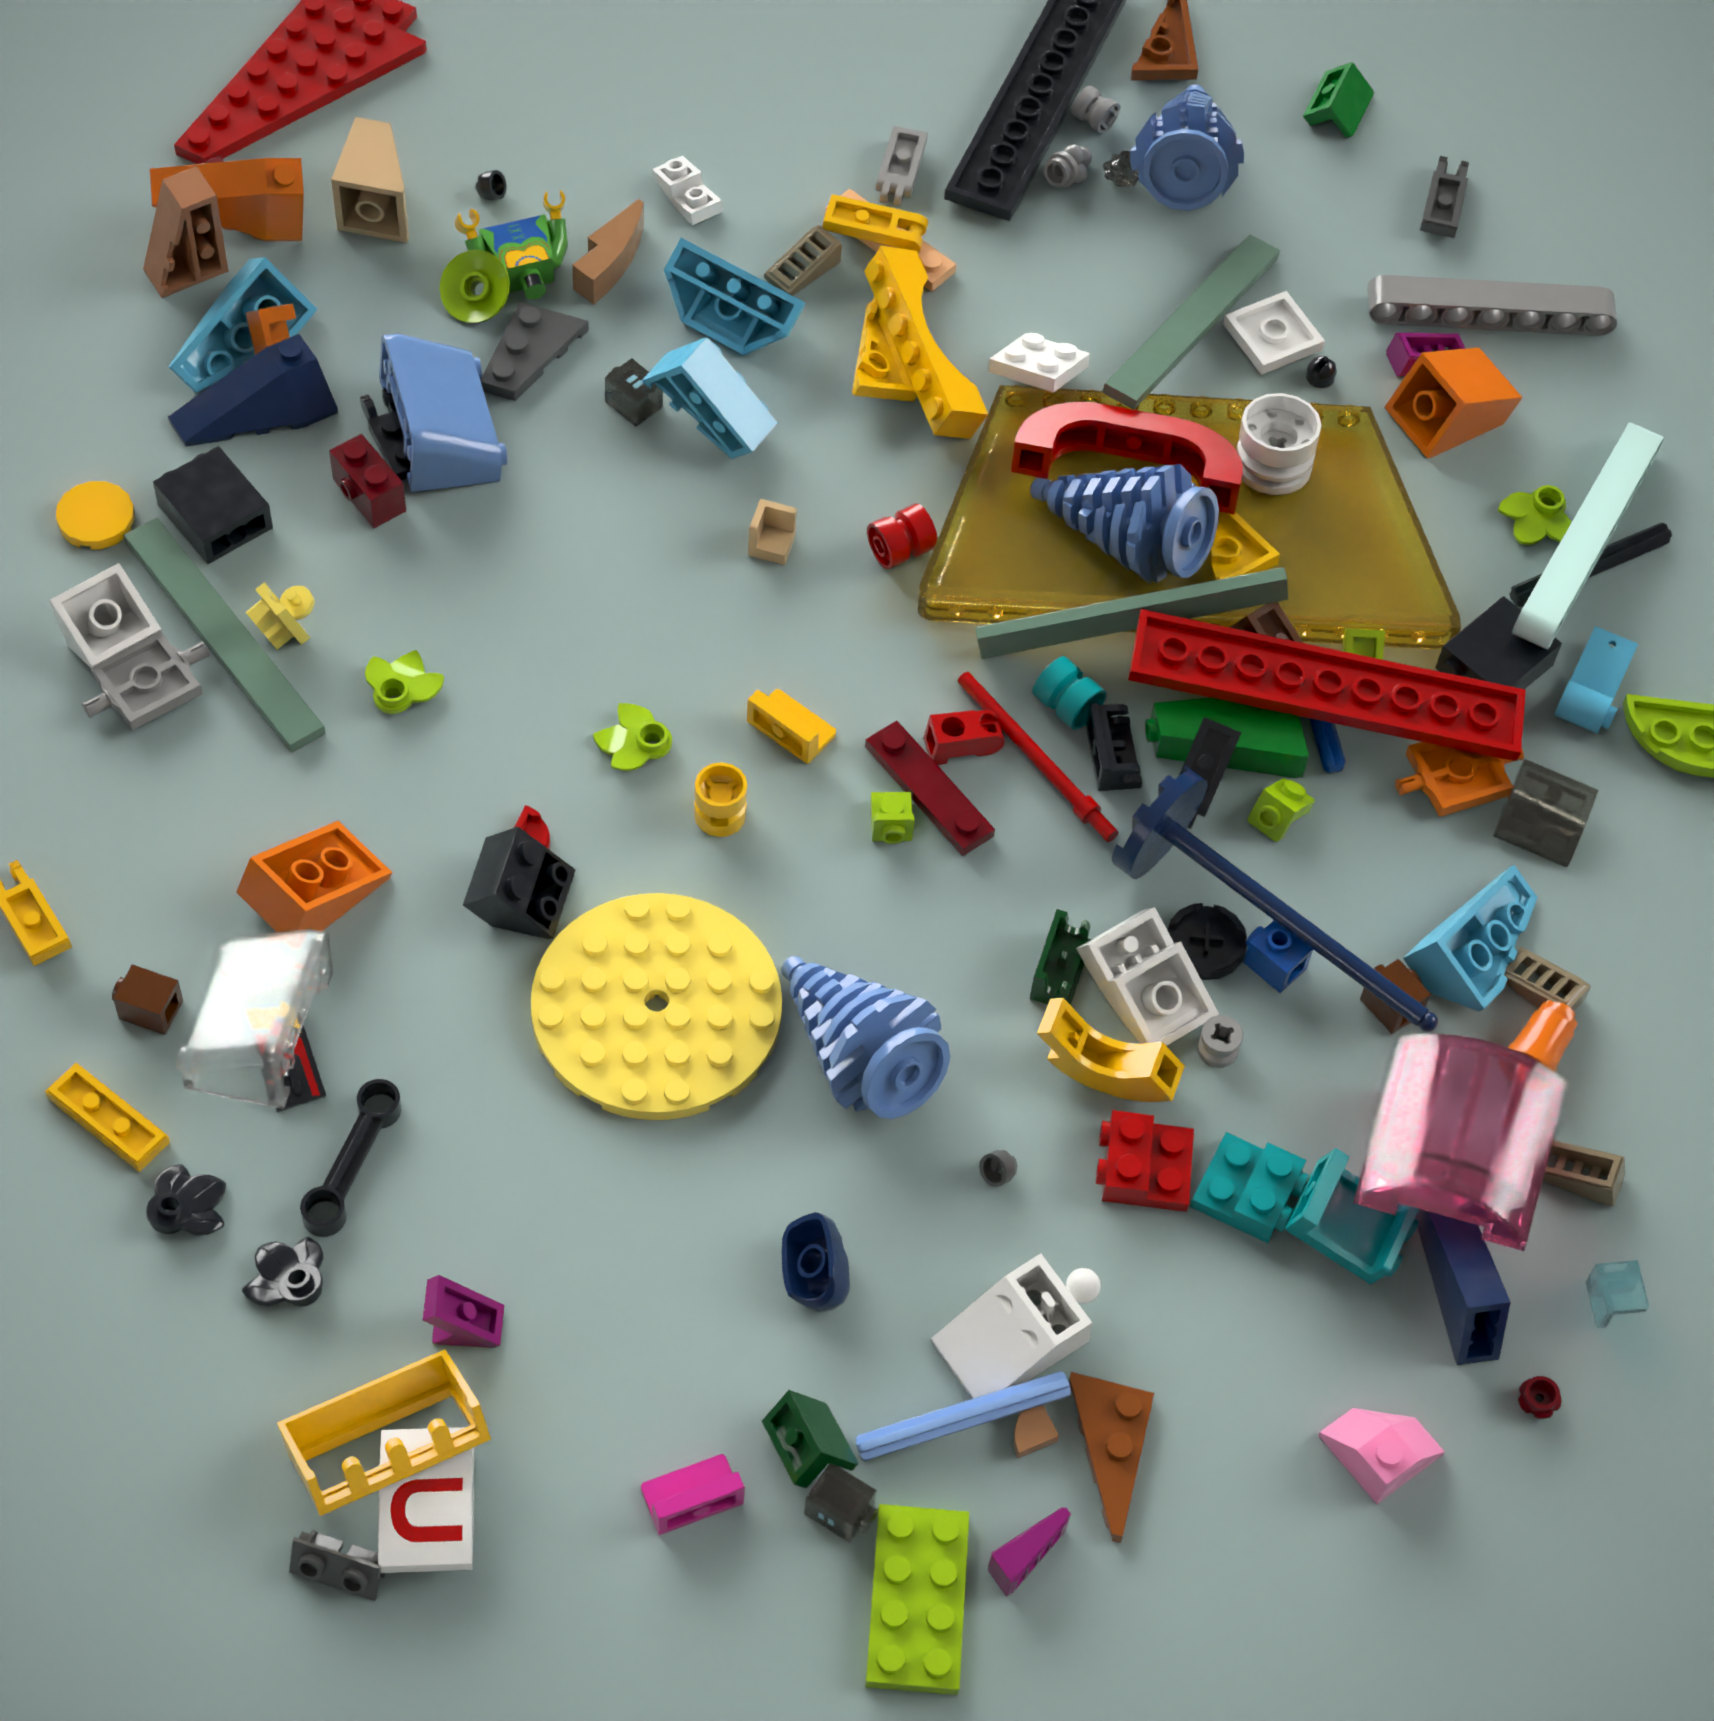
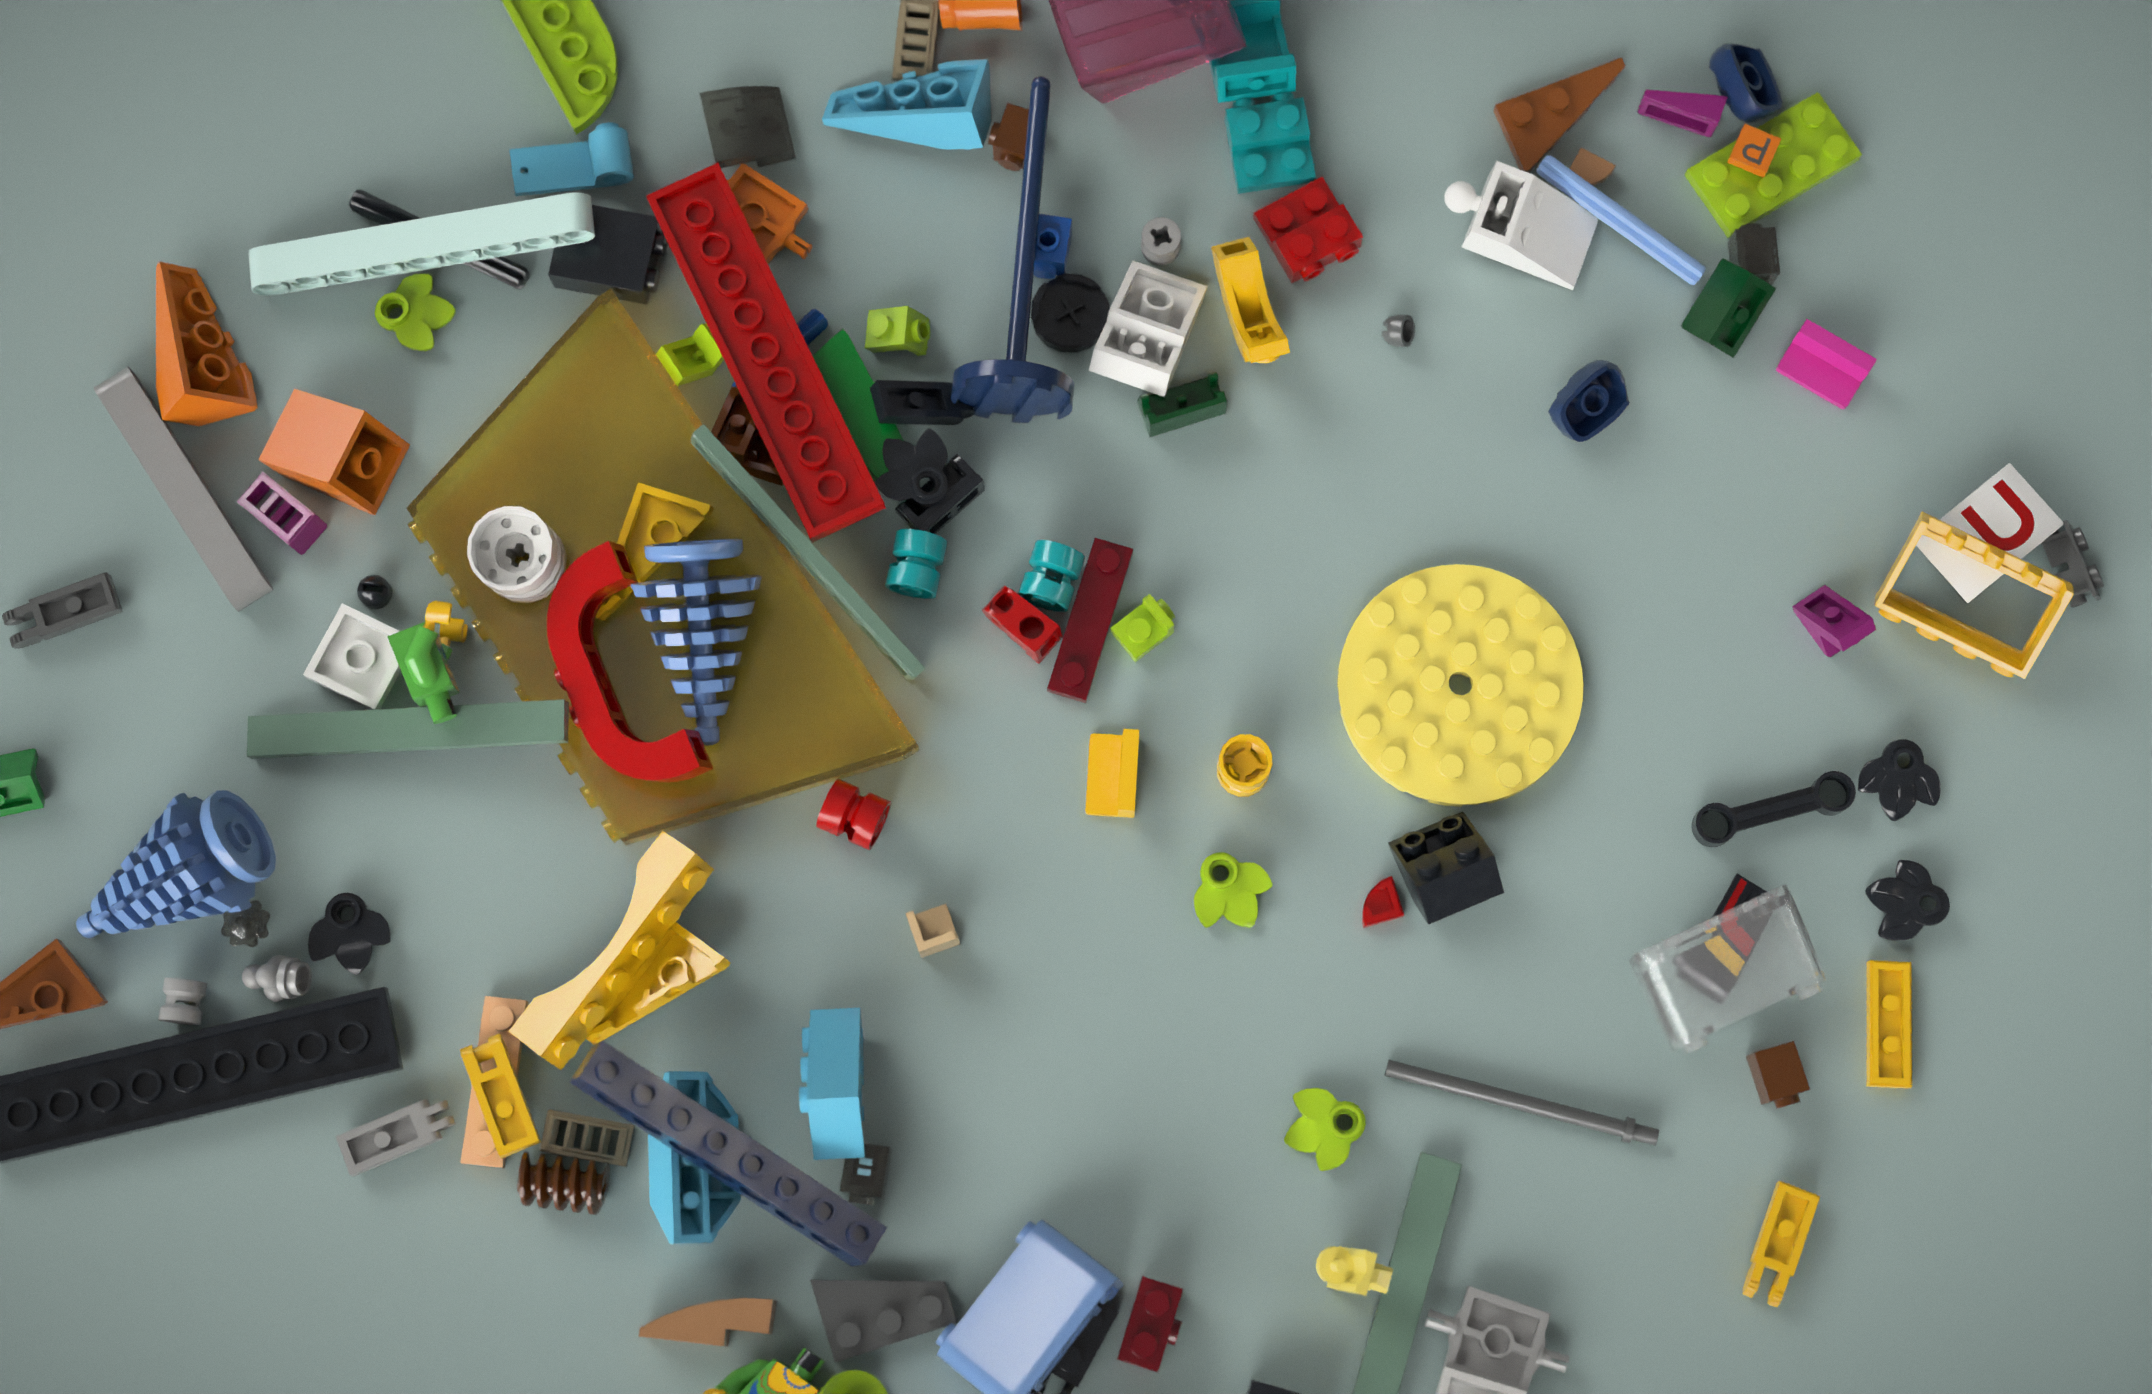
camera: 120 degrees left, 20 degrees up
(209, 871) = (1626, 1129): none -> dark grey bar
(311, 879) = (1571, 1033): orange slope -> none
(686, 191) = (573, 1317): white slope -> none
(713, 295) = (728, 1154): none -> dark blue brick
(782, 226) = (562, 1184): none -> reddish brown piece
(870, 1039) = (1378, 505): medium blue plant -> none
(941, 1570) = (1754, 150): none -> orange tile
(985, 773) = (1055, 562): none -> teal wheel
(1016, 1623) = (1746, 82): none -> dark blue piece
(1039, 362) = (562, 831): white plate -> none
(1071, 222) = (349, 939): none -> black plate
(1084, 806) = (1015, 484): red bar -> none
(1152, 726) = (910, 464): none -> black plate
(1230, 342) = (425, 659): none -> bright green torso
(1592, 367) = (195, 364): none -> orange wedge

